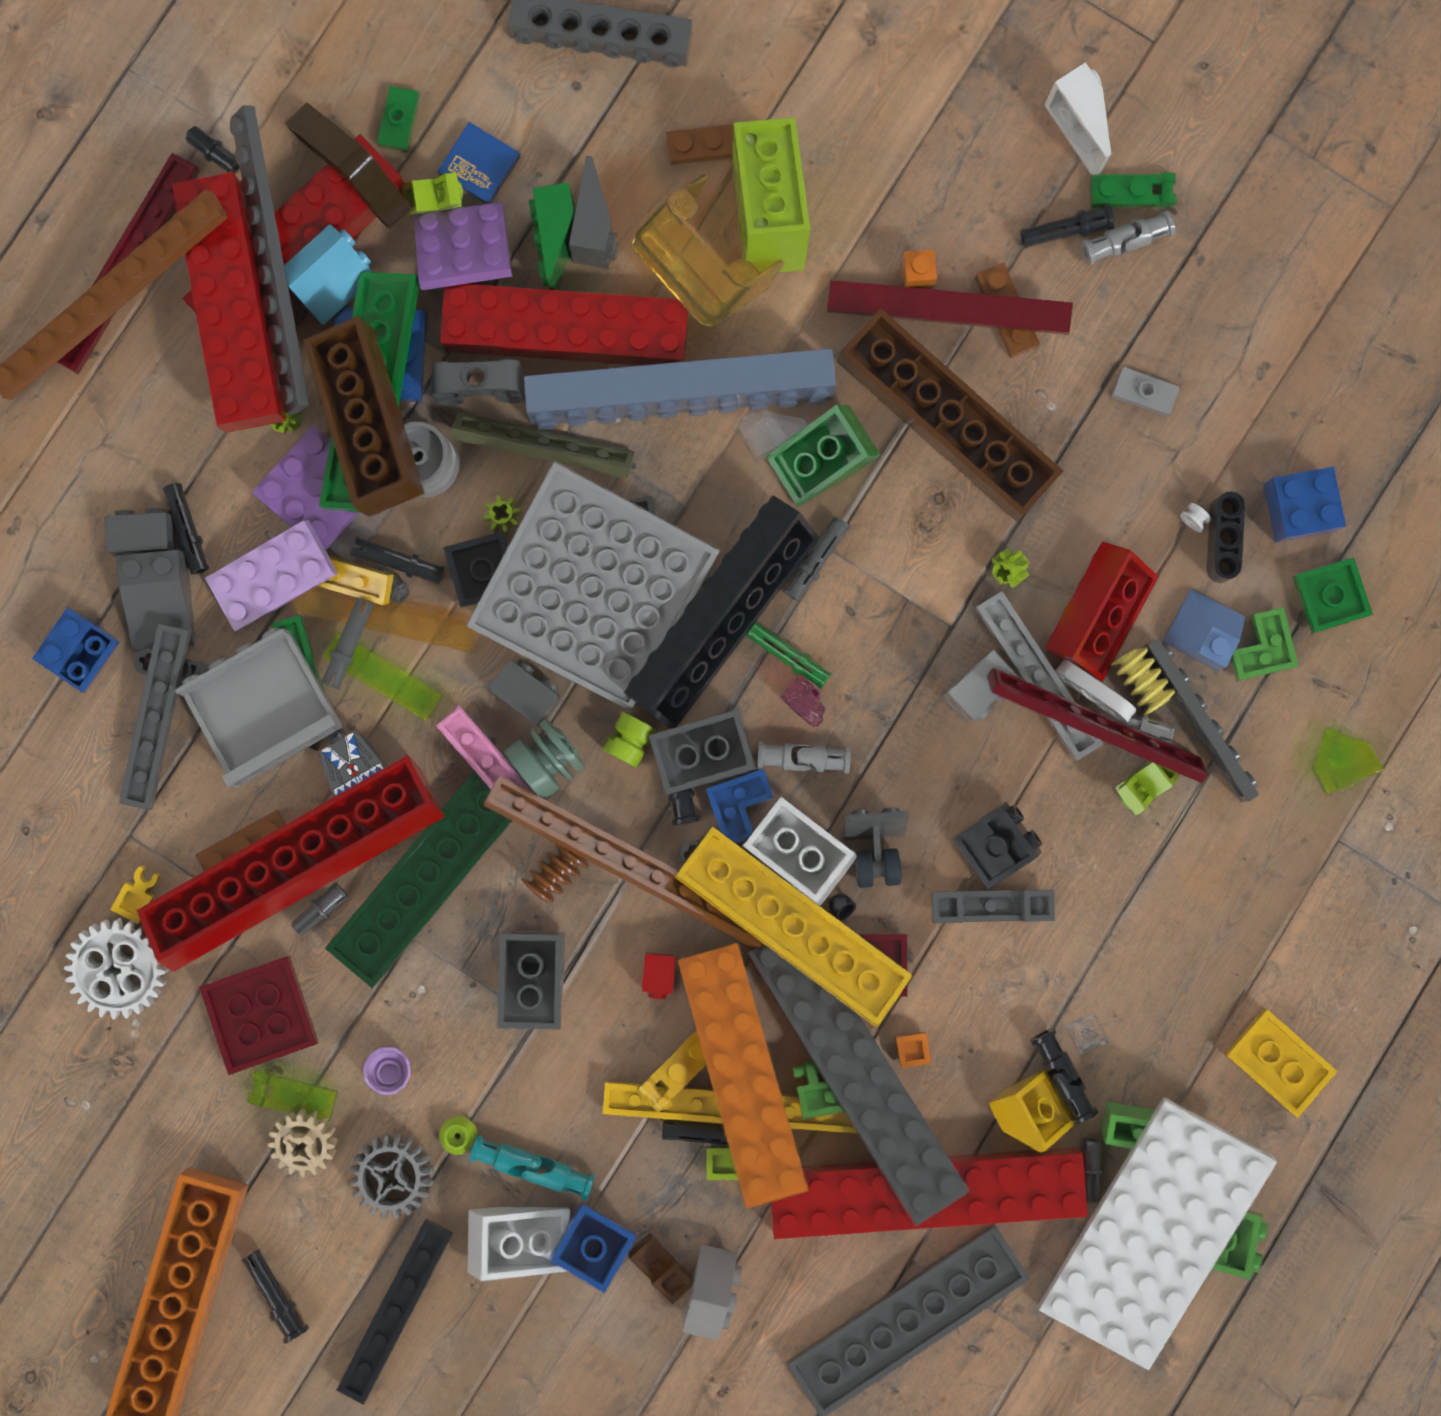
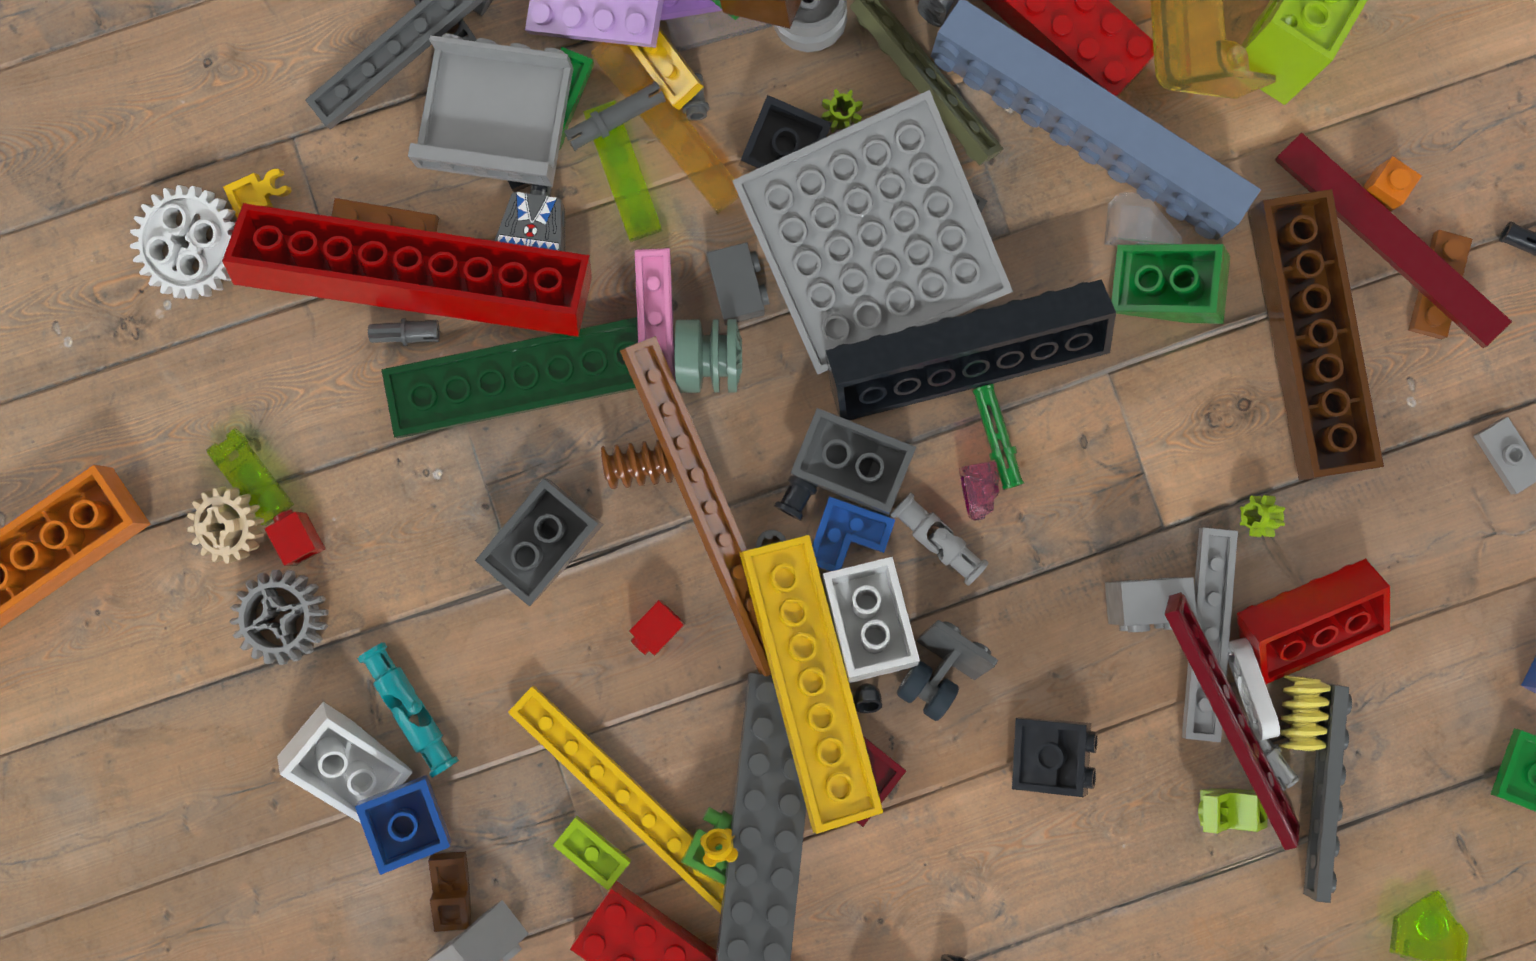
camera: 40 degrees right, 0 degrees up
(259, 1015) = (277, 382): dark red plate -> none
(281, 1308) = (91, 657): black pin -> none
(357, 1113) = (294, 537): none -> red brick
(387, 1070) = (348, 520): lavender hair -> none
(394, 1311) = (186, 739): black plate -> none
(396, 560) = (716, 78): black pin -> none
(460, 1125) = (377, 625): lime plate -> none
(629, 739) = (796, 398): lime wheel -> none
(674, 1072) = (605, 727): yellow plate -> none
(694, 1132) = (588, 806): black pin -> none
(742, 1076) = (657, 782): orange brick -> none
(812, 1085) = (714, 838): none -> yellow plate
(816, 559) = (1076, 375): dark grey pin -> none
(913, 1049) = (829, 879): orange plate -> none
(992, 906) = (1004, 808): dark grey slope -> none
(1195, 517) = (1467, 604): white bush -> none
(1205, 630) = (1395, 715): medium blue slope -> none
(1234, 525) = (1497, 641): black beam -> none
(1274, 647) = (1444, 781): bright green plate -> none

